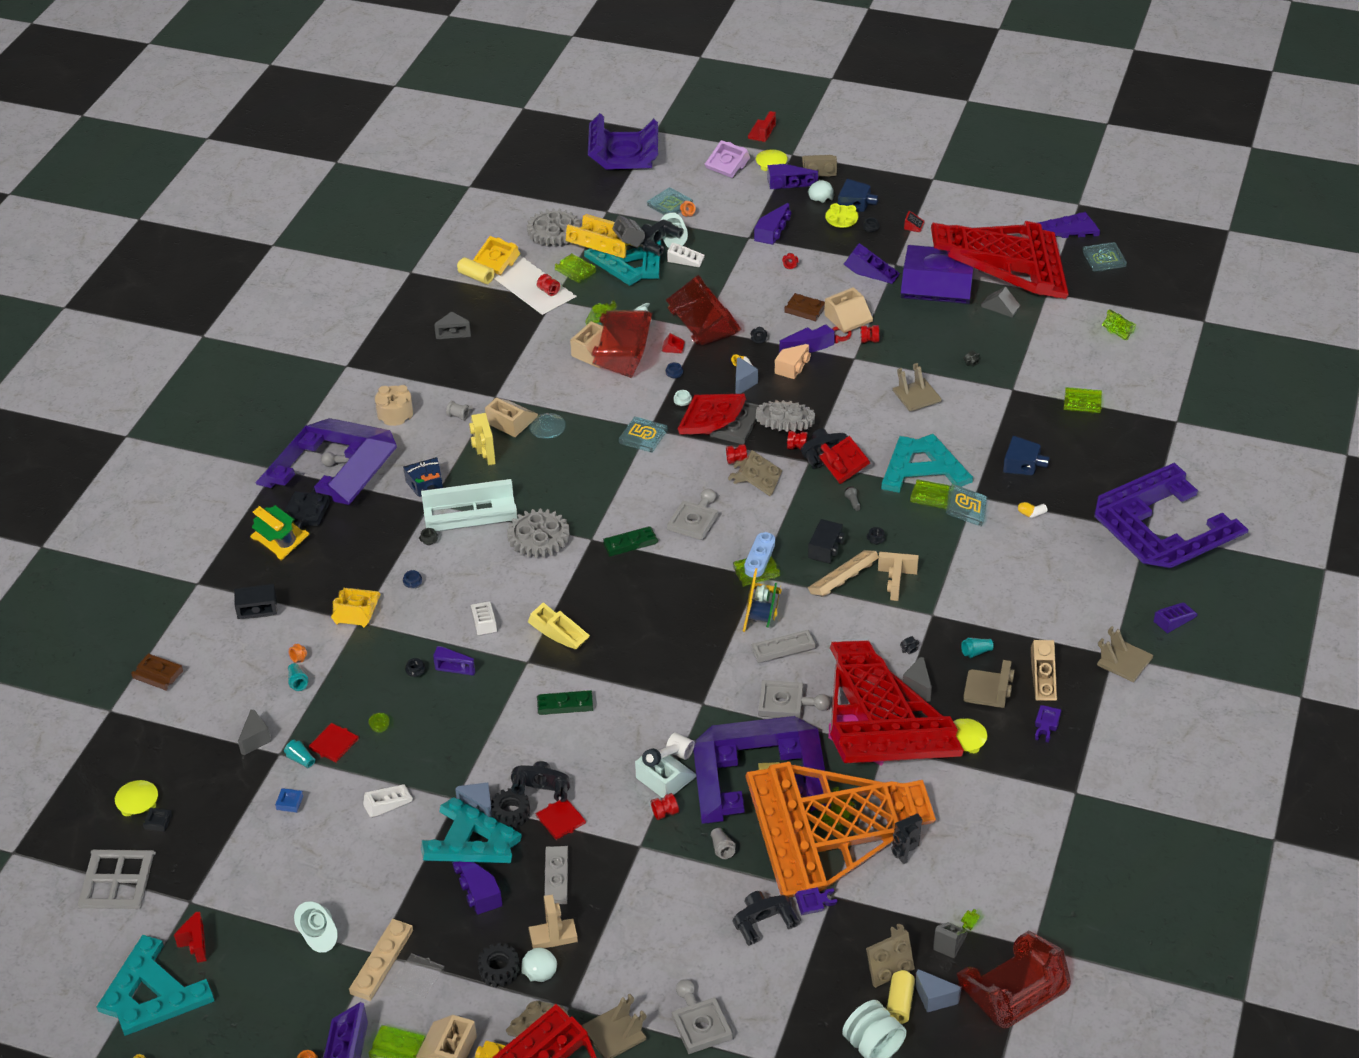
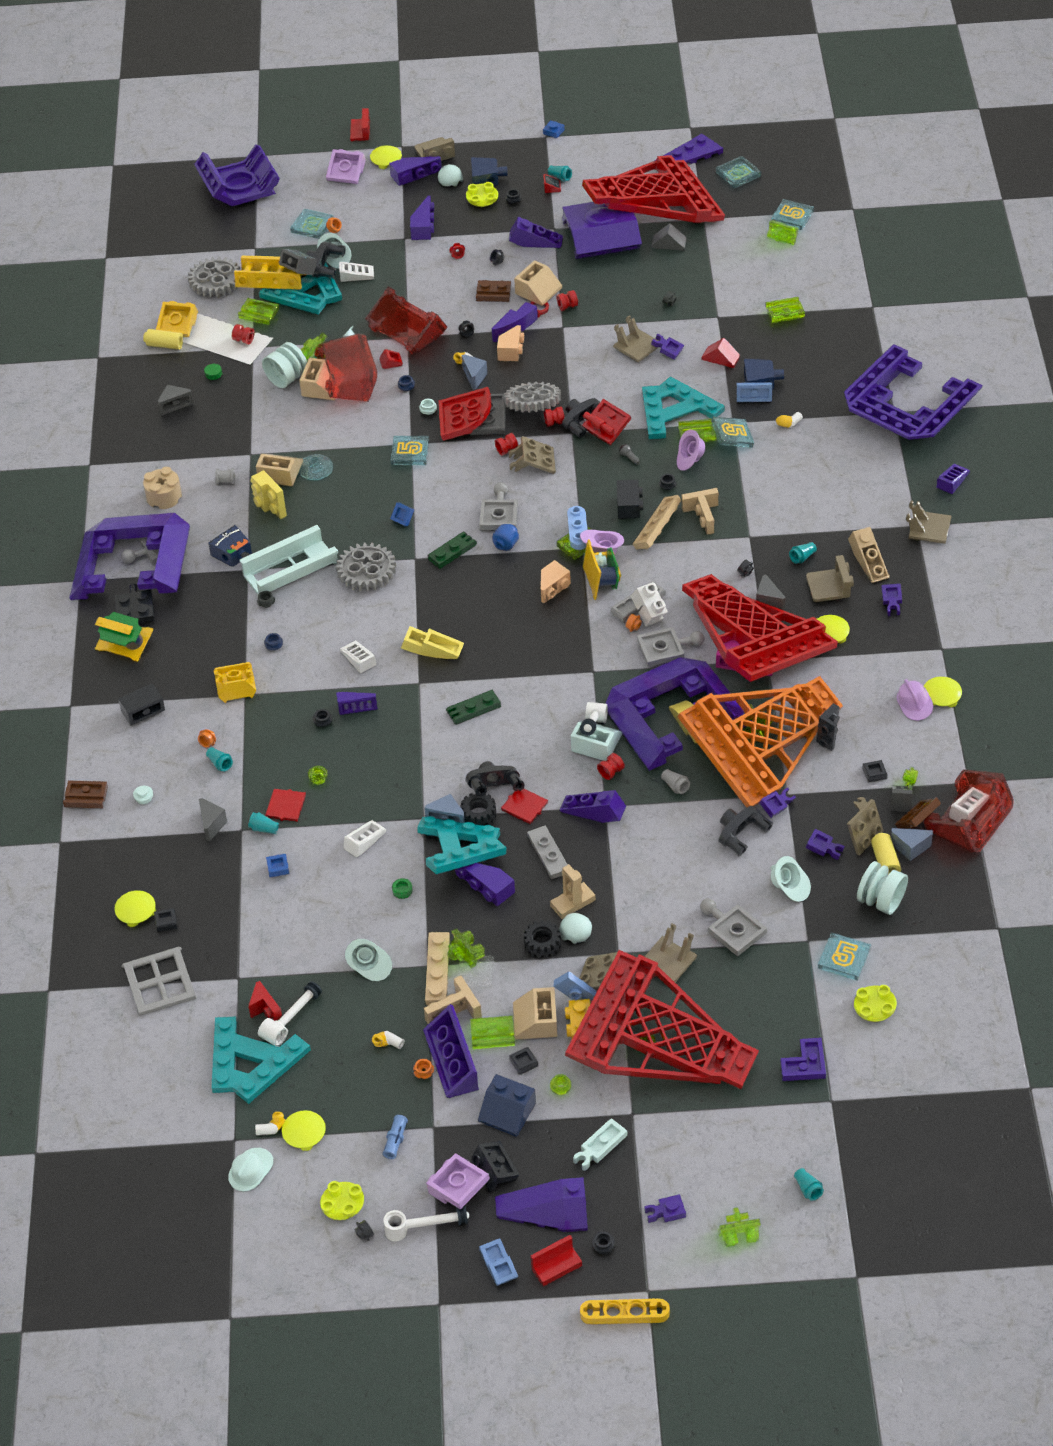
camera: 20 degrees left, 5 degrees up
(187, 968) = (274, 1031): none -> white piece
(209, 689) = (143, 794): none -> light aqua plate
(290, 1015) = (387, 1038): none -> arm
(375, 1001) = (461, 1000): none -> tan bracket
(394, 864) = (402, 888): none -> green tile
(413, 947) = (461, 948): none -> clear neon green hips
(494, 1027) = (574, 987): none -> medium blue plate
(504, 312) = (213, 371): none -> green tile
(566, 321) = (284, 365): none -> light aqua wheel
(600, 492) = (402, 514): none -> blue plate
(628, 843) = (597, 806): none -> dark purple slope
(686, 543) = (505, 537): none -> blue head
(708, 600) = (553, 580): none -> light nougat slope
(767, 666) = (633, 622): none -> orange plate
(776, 573) = (602, 540): none -> lavender piece
(784, 989) = (790, 878): none -> light aqua piece
(788, 652) = (649, 603): none -> white hips
(824, 276) = (497, 257): none -> black plate
(838, 961) = (822, 843): none -> dark purple plate
(914, 511) = (690, 449): none -> lavender piece
(928, 214) = (562, 173): none -> teal cone
(937, 901) = (874, 771): none -> black tile
(943, 173) = (553, 129): none -> blue plate
(945, 405) = (668, 347): none -> dark purple plate
(956, 963) = (918, 813): none -> reddish brown plate
(996, 425) = (721, 353): none -> red slope
(1006, 980) = (966, 806): none -> white slope
(1009, 471) = (754, 392): none -> medium blue plate
(1017, 838) = (914, 700): none -> lavender piece
(1052, 838) = (943, 691): none -> neon yellow dish
(1139, 310) = (793, 213): none -> clear light blue tile

